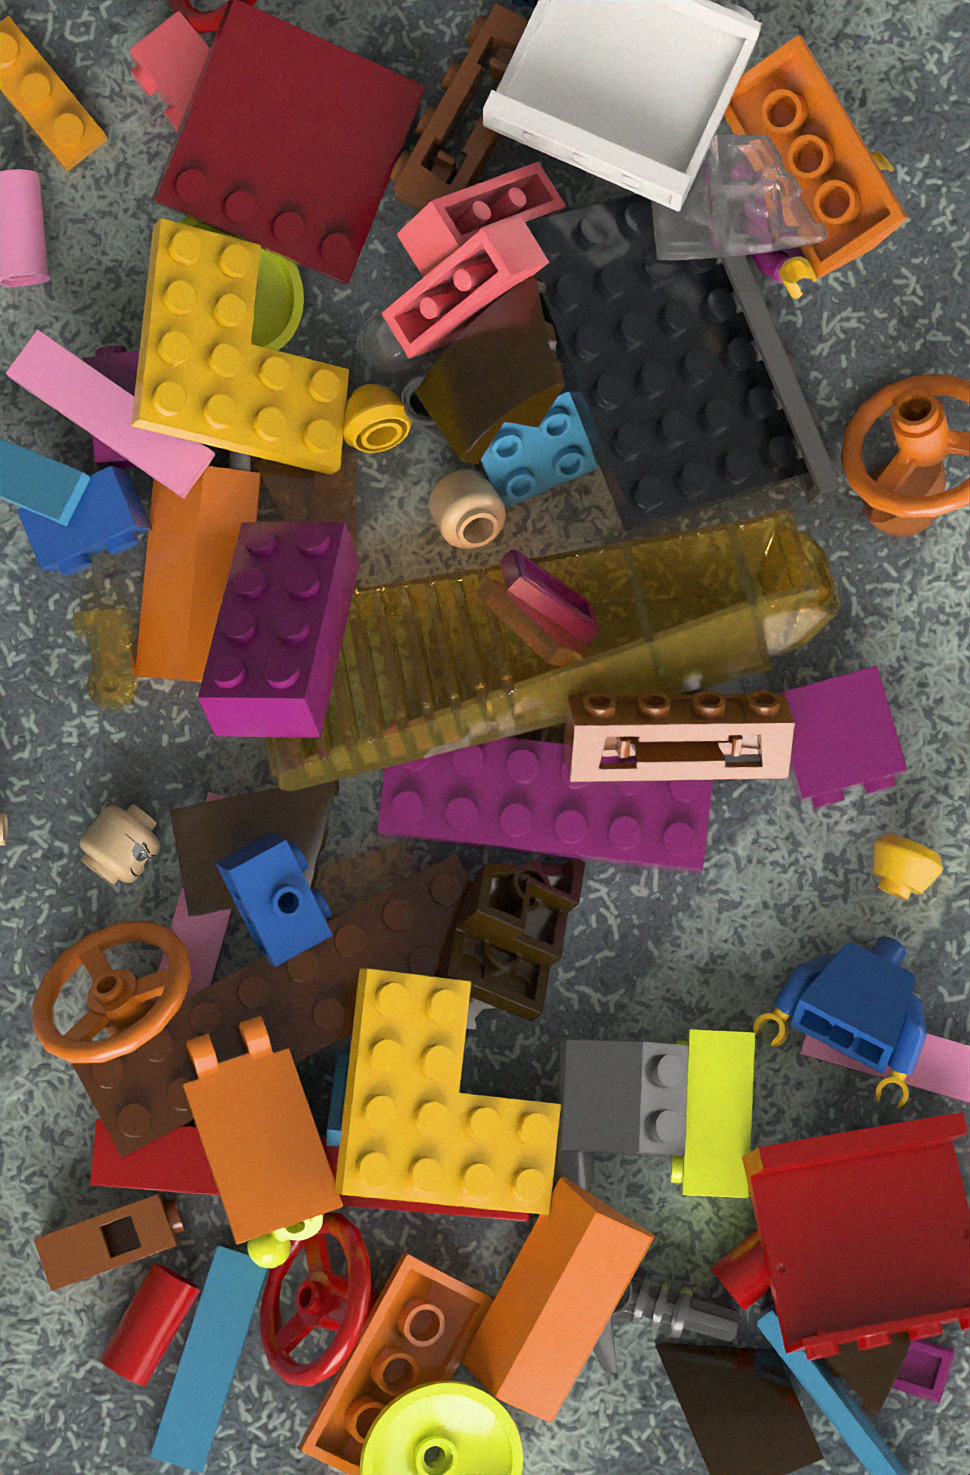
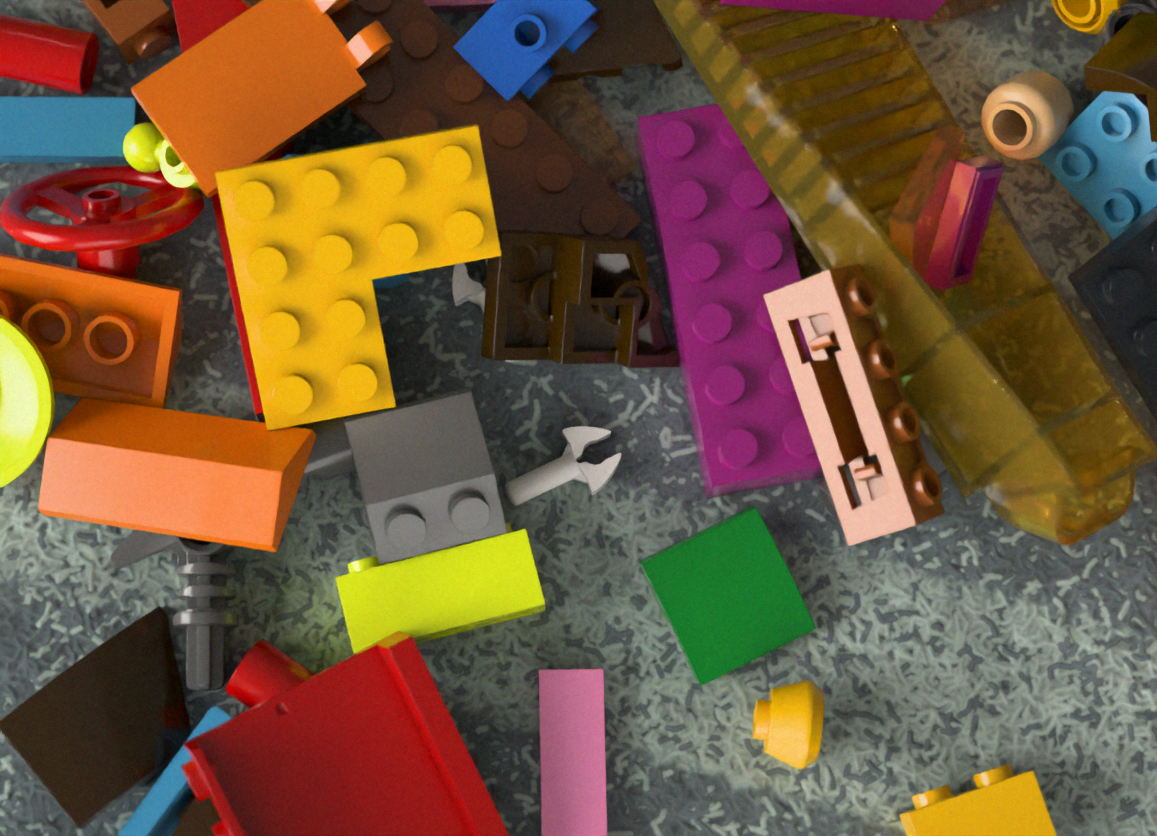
camera: 65 degrees right, 5 degrees down
(641, 981) = (566, 467): none -> white bar
(785, 883) = (727, 595): none -> green slope
(843, 738) = (914, 601): magenta brick -> none
(857, 1006) = (610, 715): blue torso -> none

